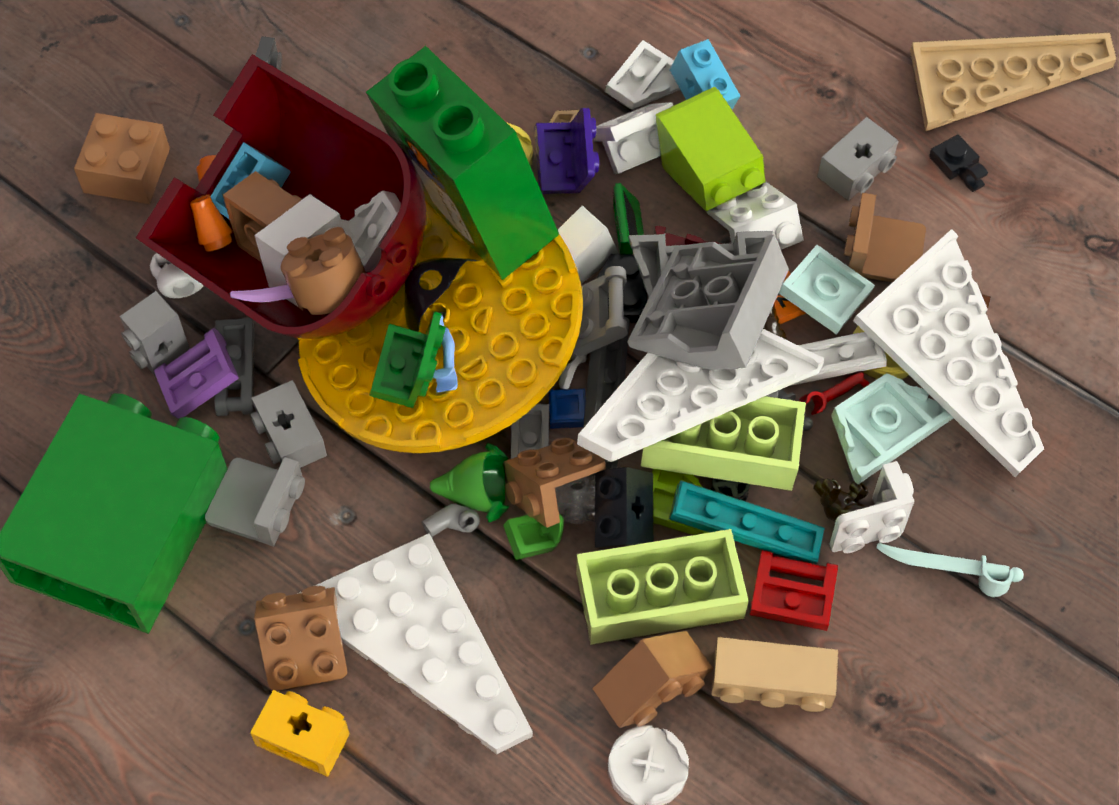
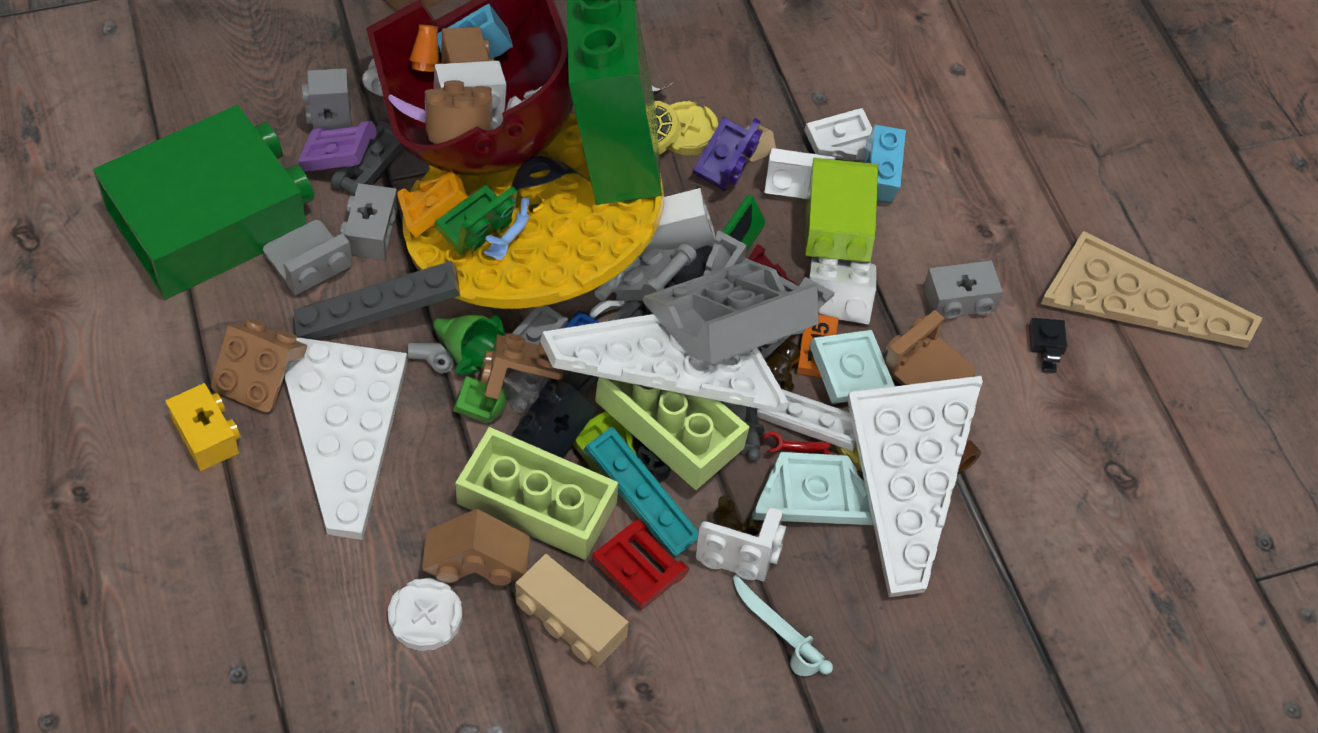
camera: 30 degrees right, 5 degrees down
(343, 372) = (431, 201): none -> light orange wing
(367, 503) = (377, 302): none -> dark grey plate

